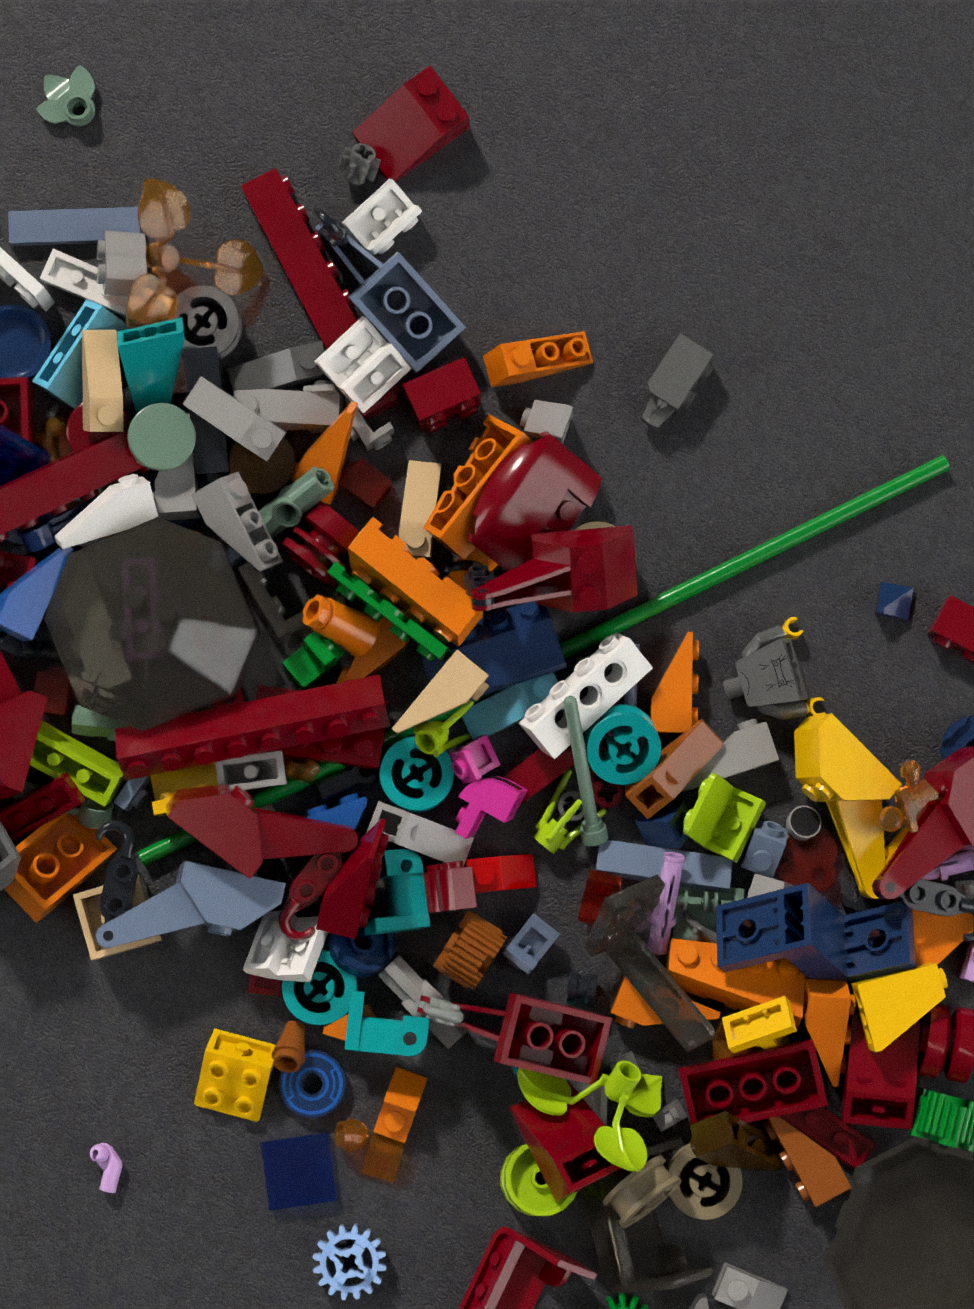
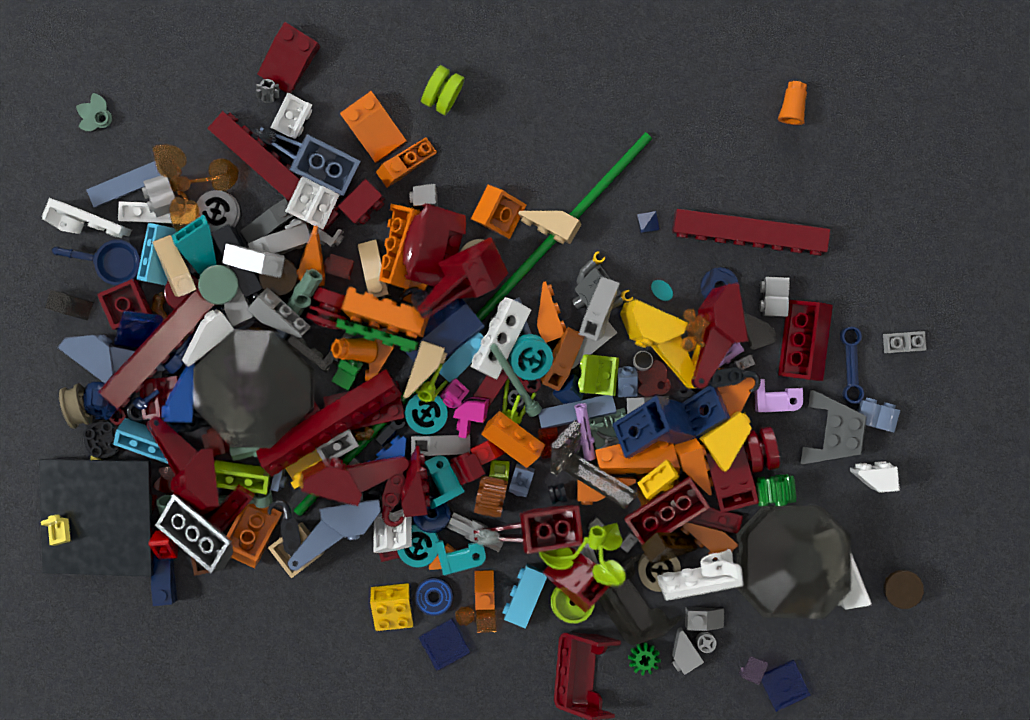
camera: 25 degrees left, 5 degrees up
(109, 1163) = (344, 678): lavender arm -> none
(290, 1048) = (415, 585): dark orange cone -> none
(335, 1253) = (481, 680): light blue gear -> none
(463, 1139) = (524, 596): none -> medium azure brick
(501, 913) = (499, 469): none -> lime slope
(506, 282) = (373, 126): none -> orange slope
(542, 870) = (513, 439): none -> orange brick
(640, 265) = (441, 90): none -> lime wheel
(642, 1191) = (629, 590): dark tan wheel -> none
(658, 492) = (498, 211): none -> orange slope
(675, 379) = (485, 146): dark grey hinge -> none
(742, 543) = (557, 223): none -> tan slope
(765, 708) = (599, 309): none -> light grey slope
(790, 1221) = (707, 578): none -> white plate
(876, 720) = (662, 290): none -> teal sticker

